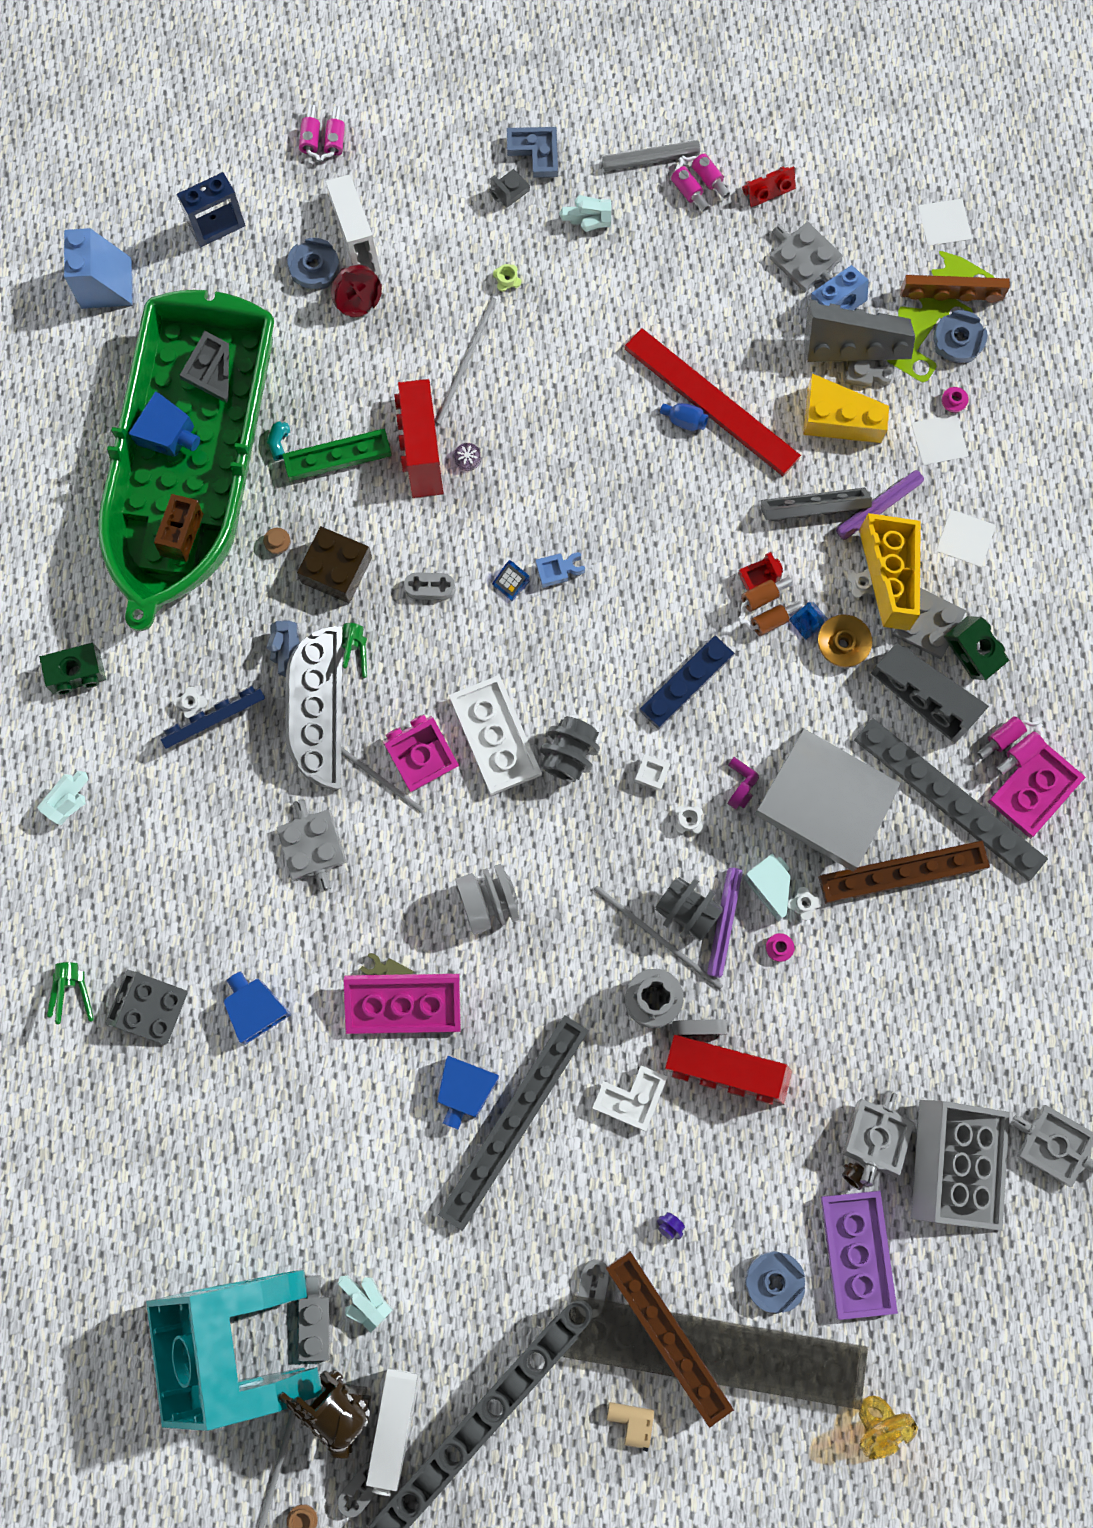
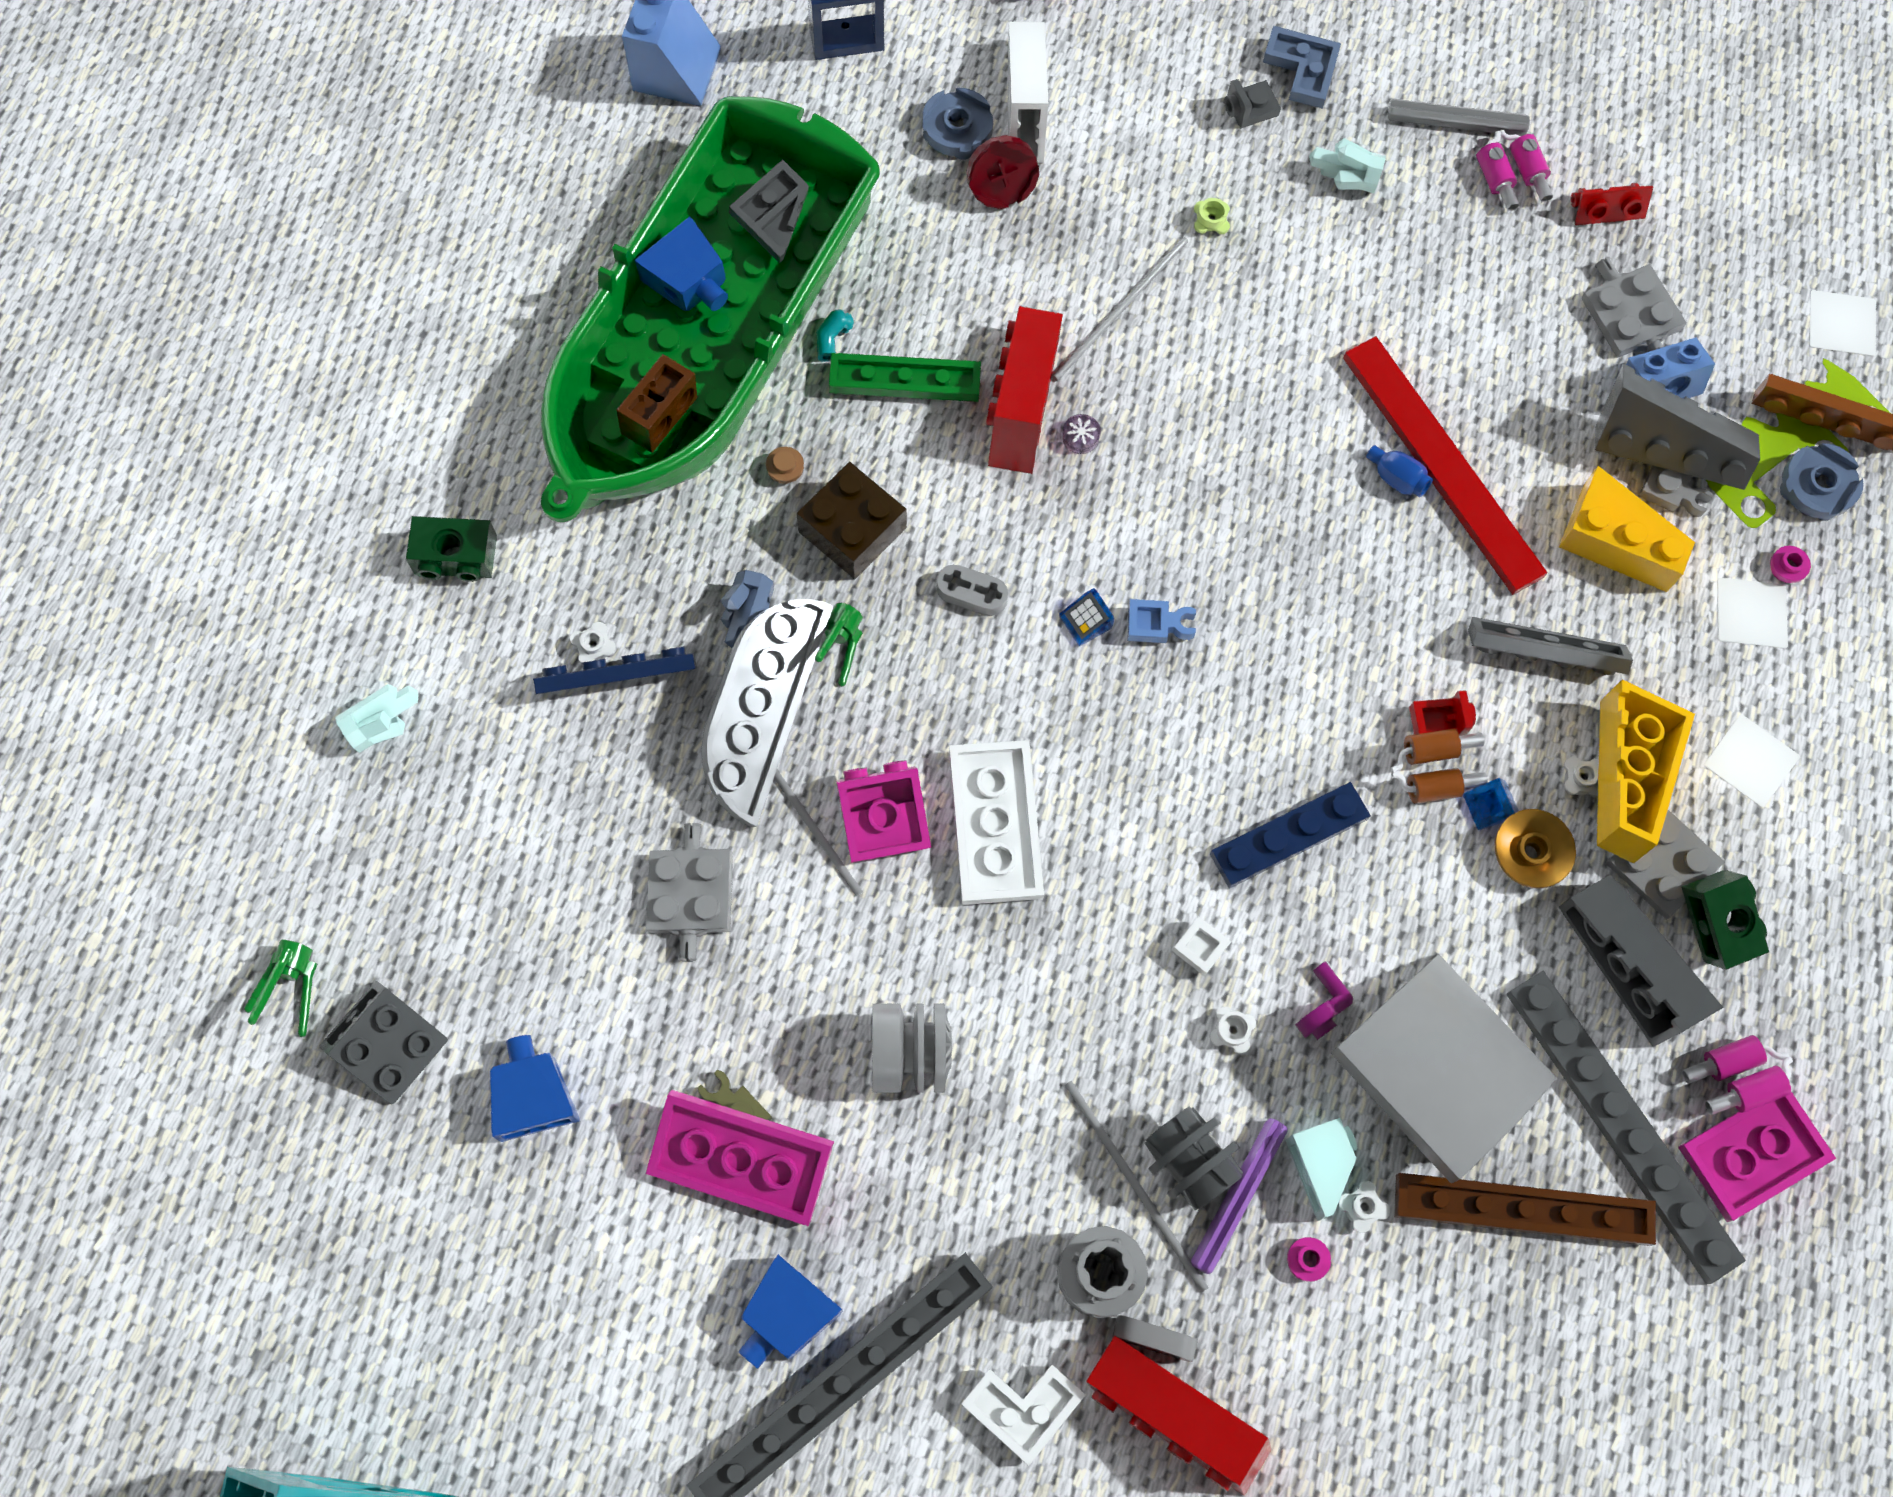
camera: 15 degrees right, 5 degrees down
(571, 745) = (1089, 880): dark grey piece -> none
(881, 503) = (1643, 674): medium lavender axle -> none

